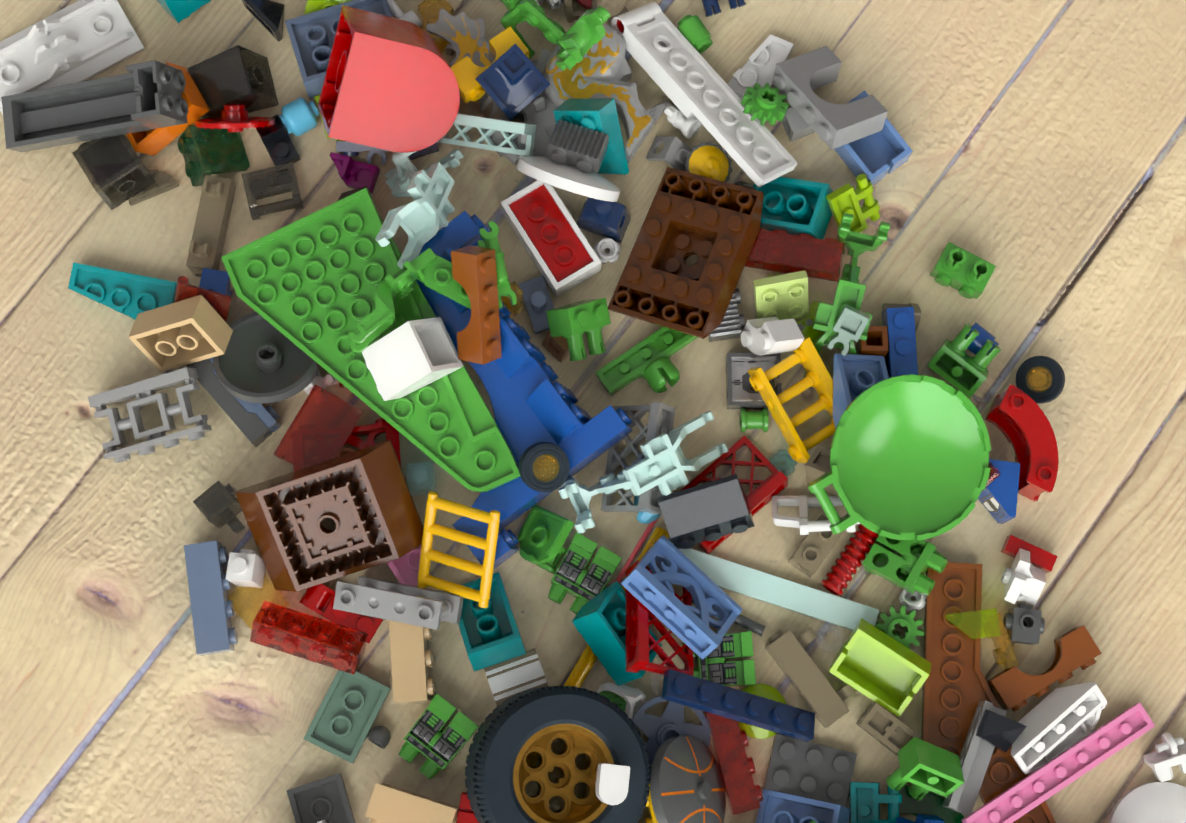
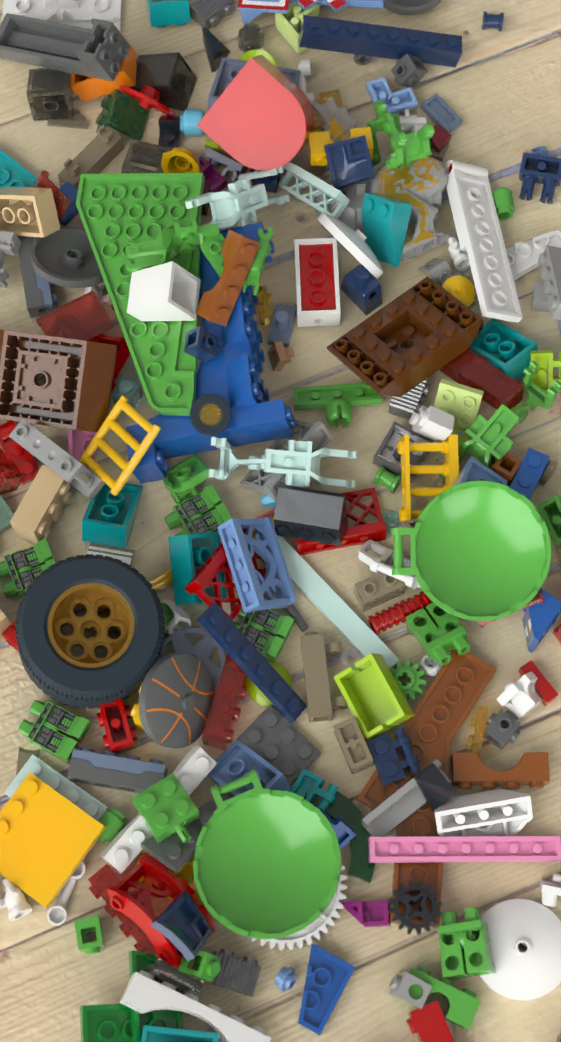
camera: 35 degrees right, 10 degrees down
(319, 178) = (180, 161): none -> yellow piece
(494, 389) = (202, 344): none -> dark blue brick
(577, 146) = (367, 222): flat silver brick -> none
(577, 318) = (301, 341): bright green brick -> none
(607, 243) = (352, 308): white plate -> none
(612, 783) = (121, 646): white piece -> none
(764, 104) = (523, 268): bright green gear -> none
(849, 326) = (490, 440): plate -> none
(927, 768) = (364, 782): bright green brick -> none
(928, 724) = (386, 760): none -> dark blue plate
(977, 623) = (466, 705): clear neon green tile -> none

